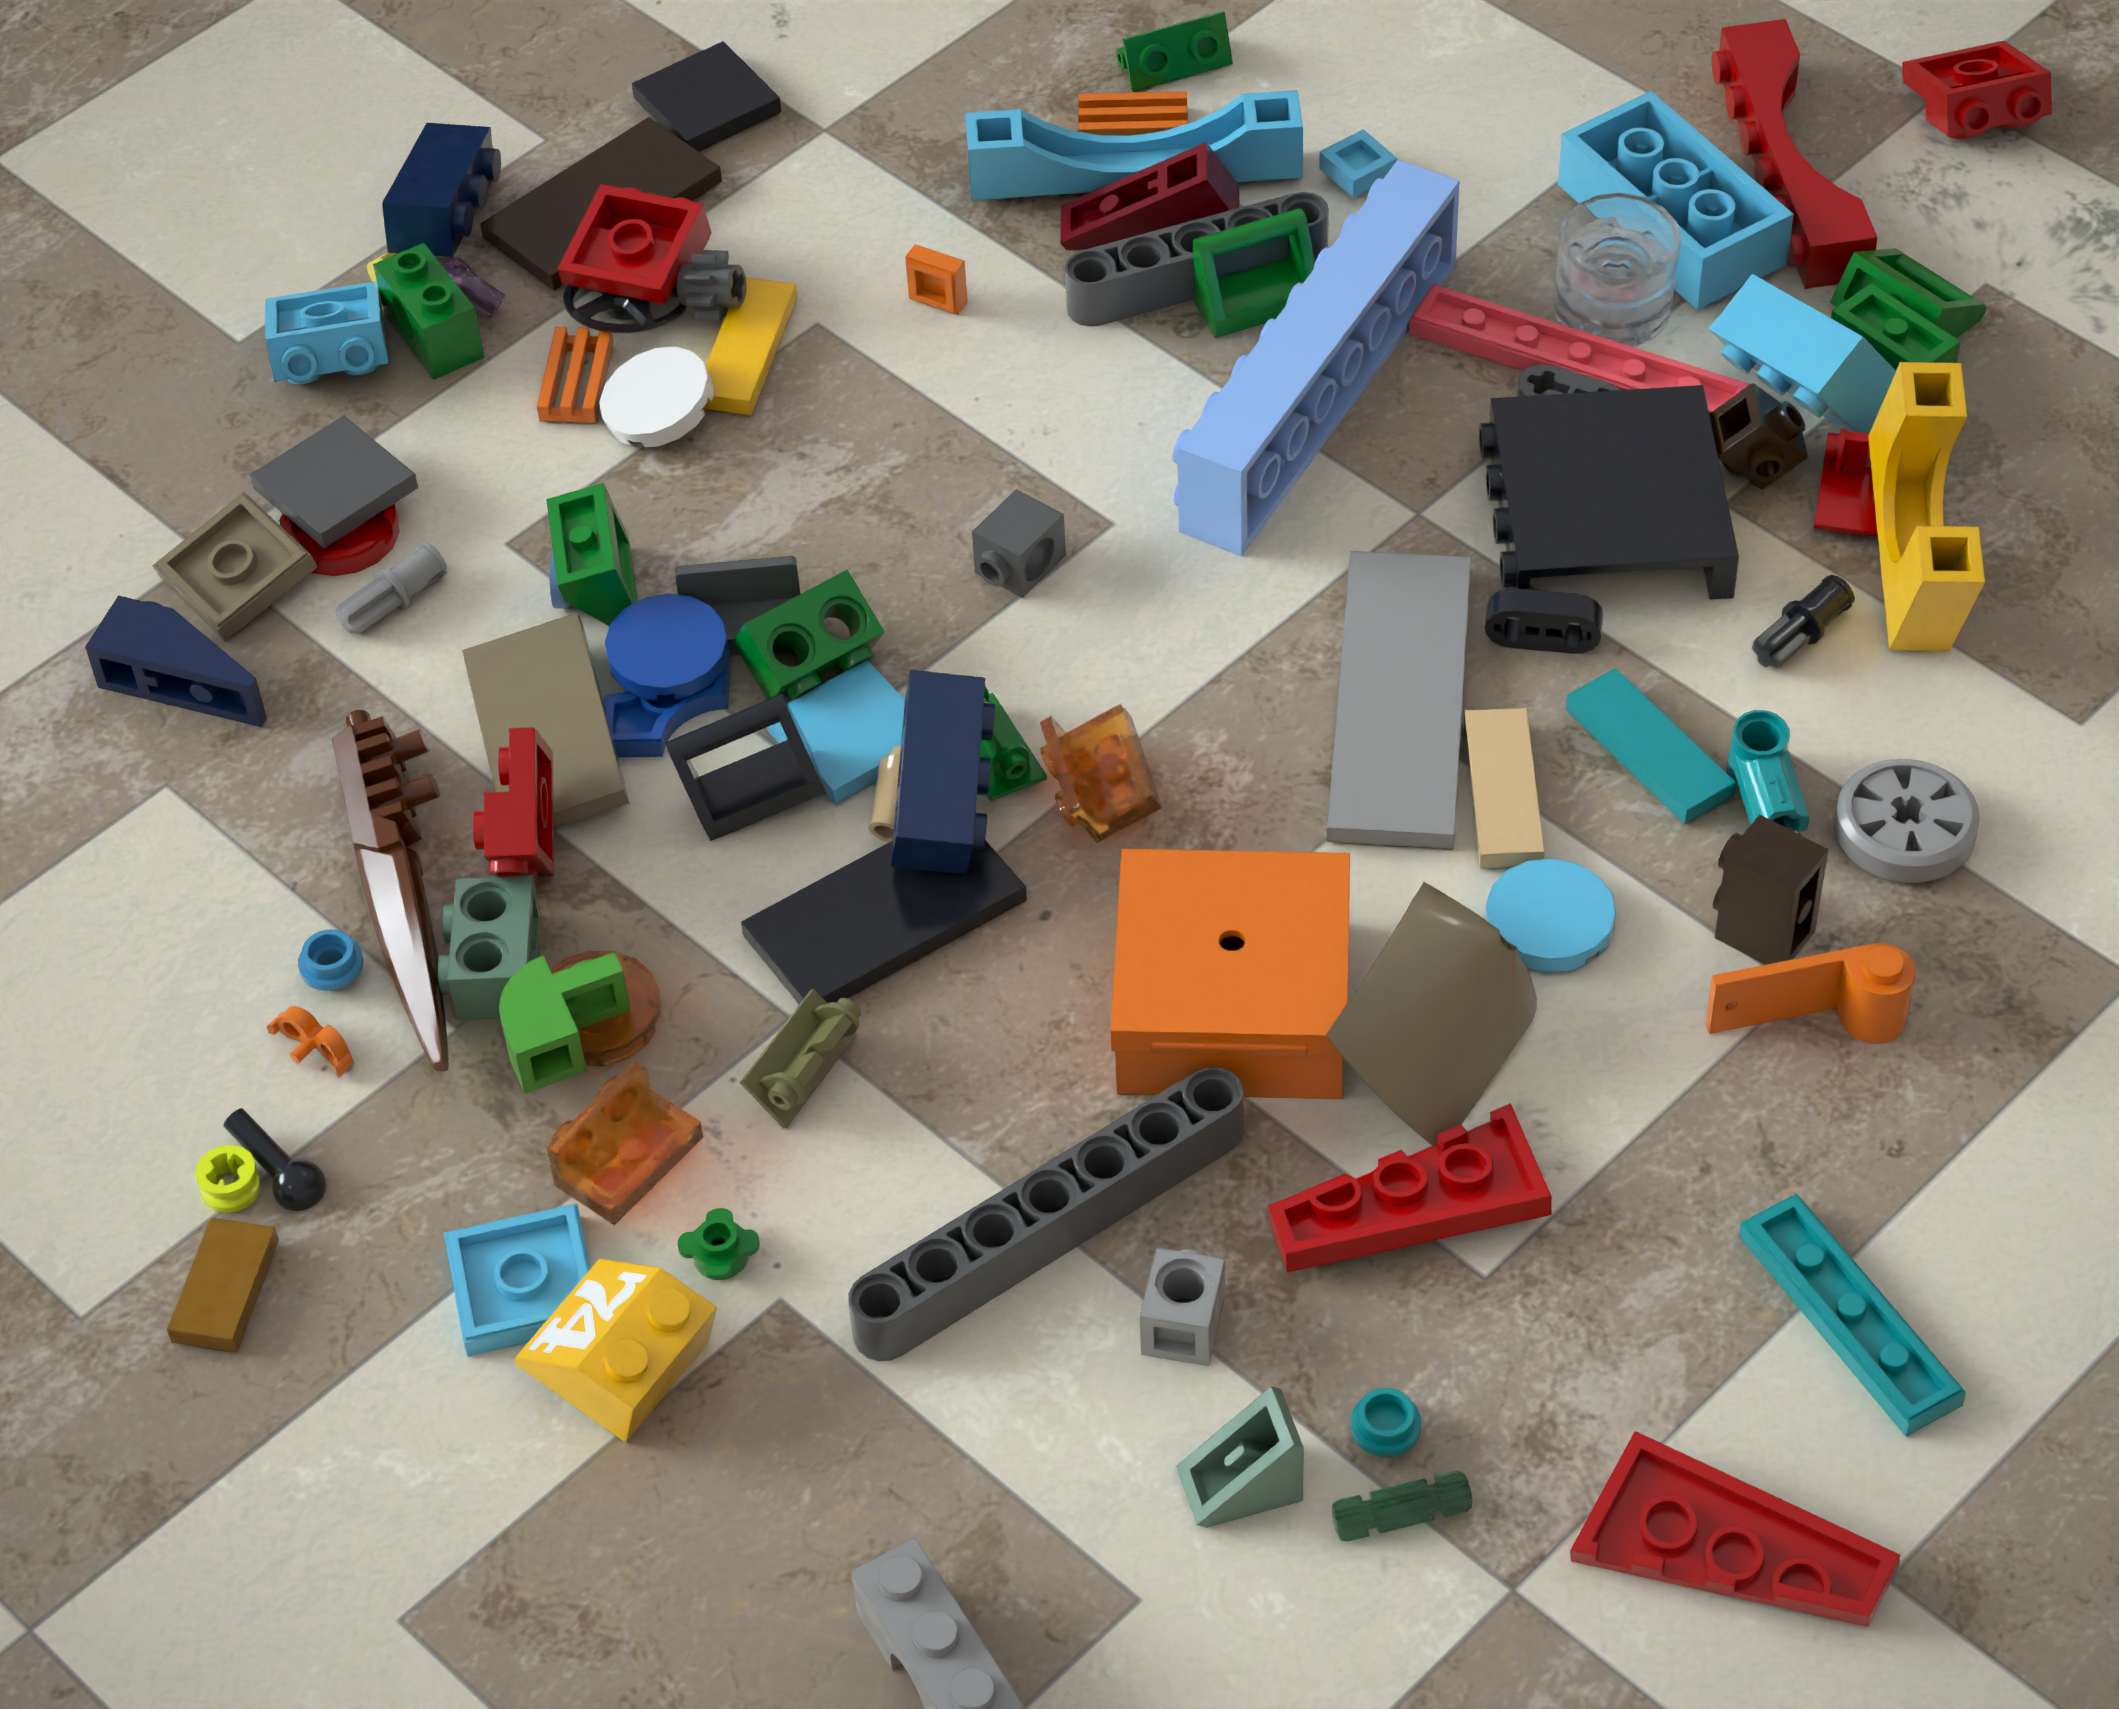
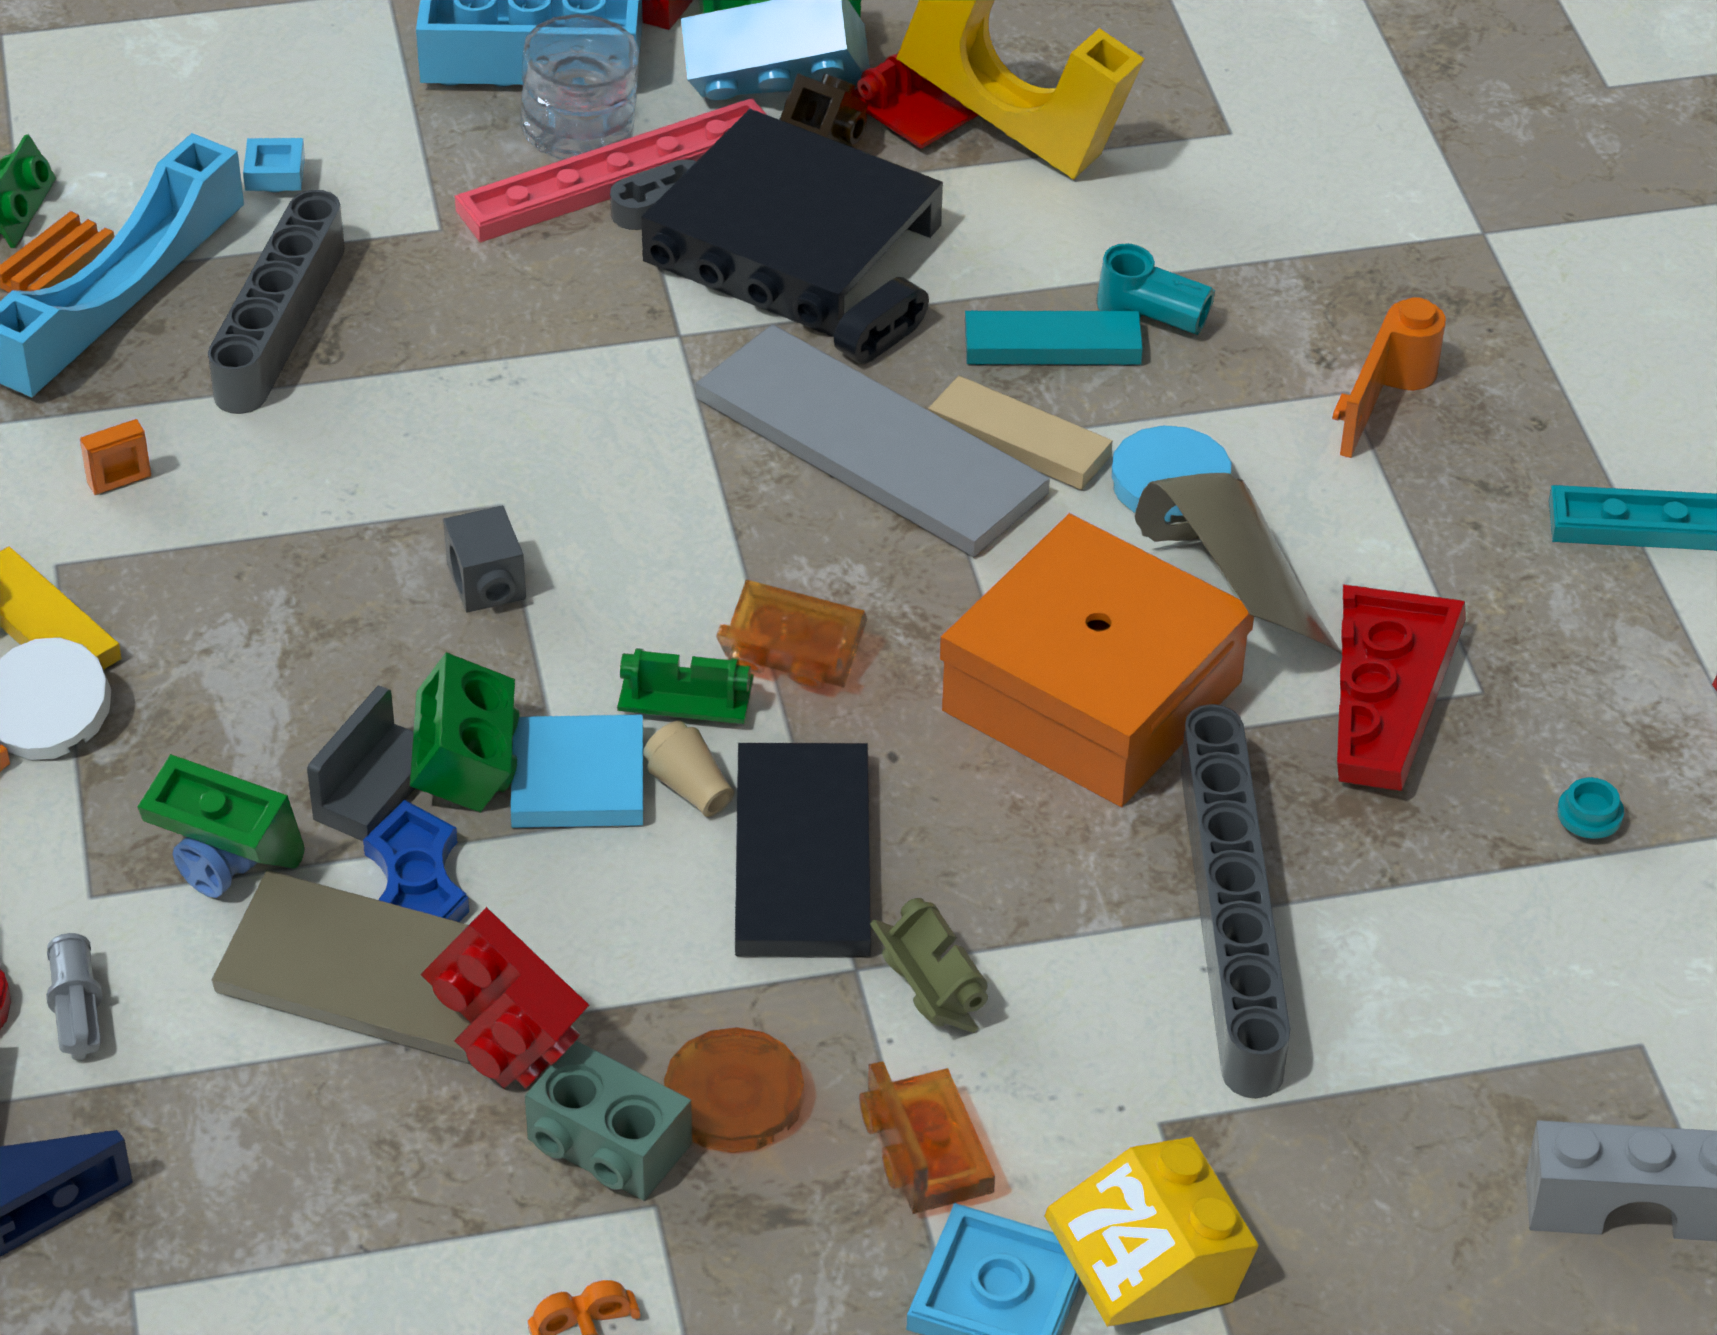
camera: 60 degrees left, 5 degrees down
(330, 960) = (500, 1238): dark azure plate -> none
(381, 826) = (431, 1152): reddish brown piece -> none
(546, 1010) = (752, 1116): bright green brick -> none
(666, 646) = (372, 830): blue tile -> none
(722, 1260) = (1078, 1143): green plate -> none
(753, 785) = (584, 841): black tile -> none
(942, 772) = (730, 712): dark blue brick -> none
(1152, 199) = (186, 292): dark red slope -> none
(1182, 1329) = (1394, 862): light grey brick -> none
(1246, 1464) = (1581, 896): sand green slope -> none
(1256, 293) = (344, 297): green tile -> none
(1315, 358) = (491, 283): light blue brick -> none
(1401, 1506) = (1674, 841): clear green axle -> none
(1769, 891) = (1287, 337): dark brown brick -> none
(1803, 621) = (1013, 198): black axle -> none
(1907, 851) = (1253, 252): light grey wheel -> none

